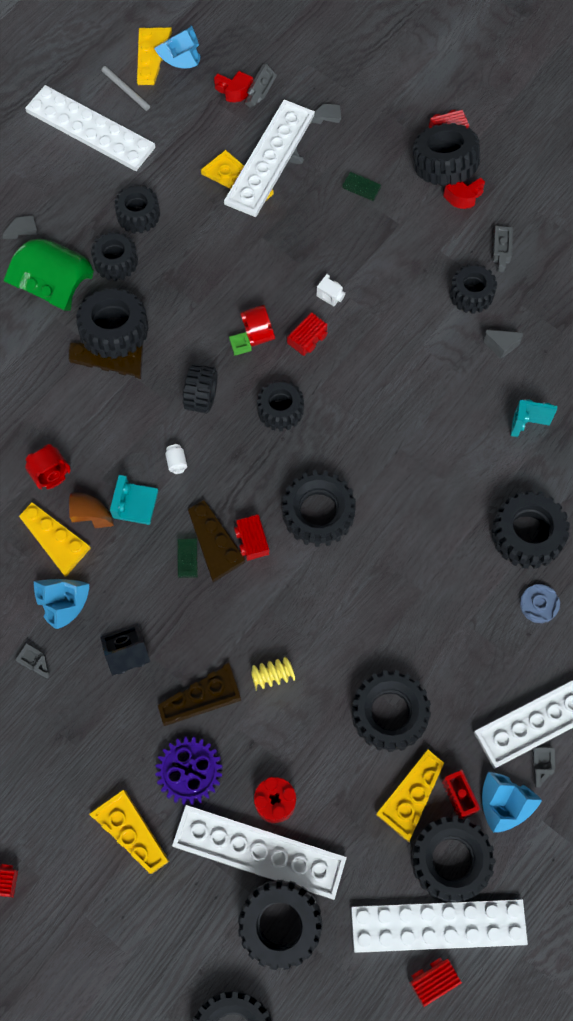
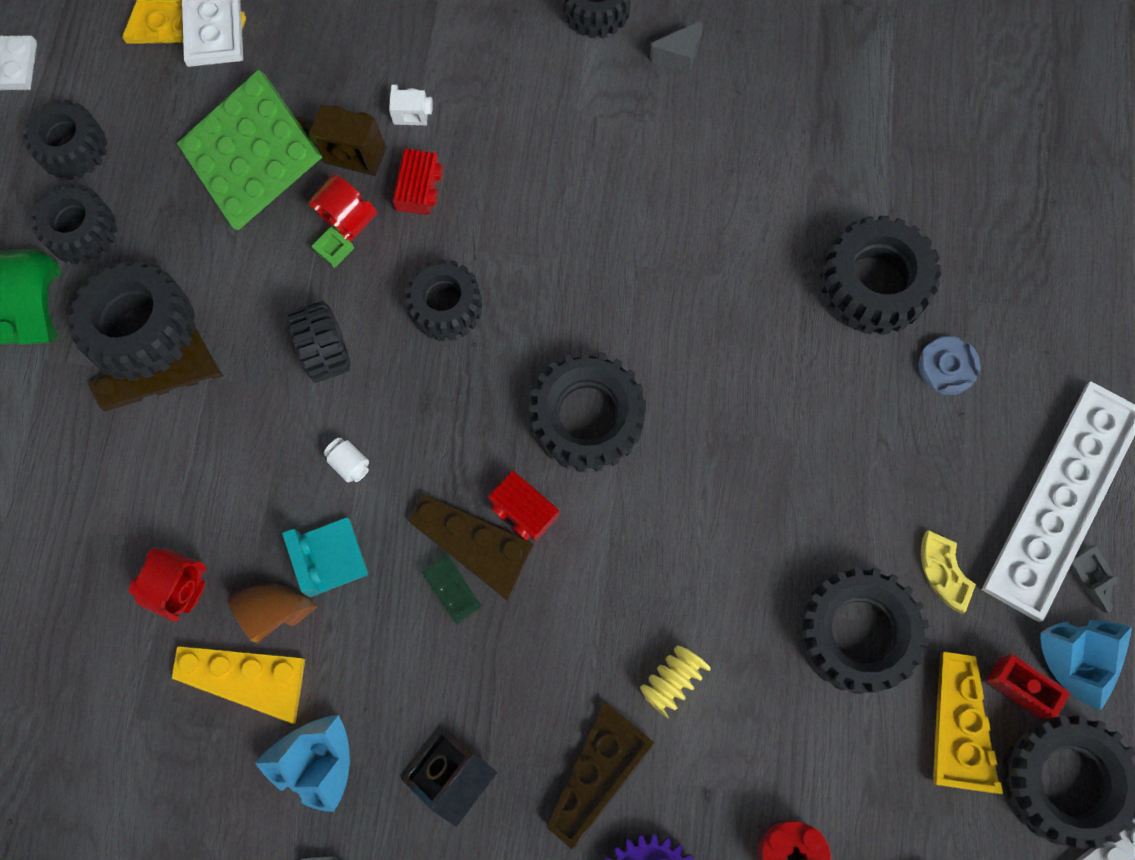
camera: 30 degrees left, 5 degrees up
(228, 267) = (249, 150): none -> bright green plate
(283, 289) = (346, 138): none -> dark brown brick
(459, 711) = (943, 572): none -> light yellow tile
(531, 412) = (777, 120): teal bracket -> none

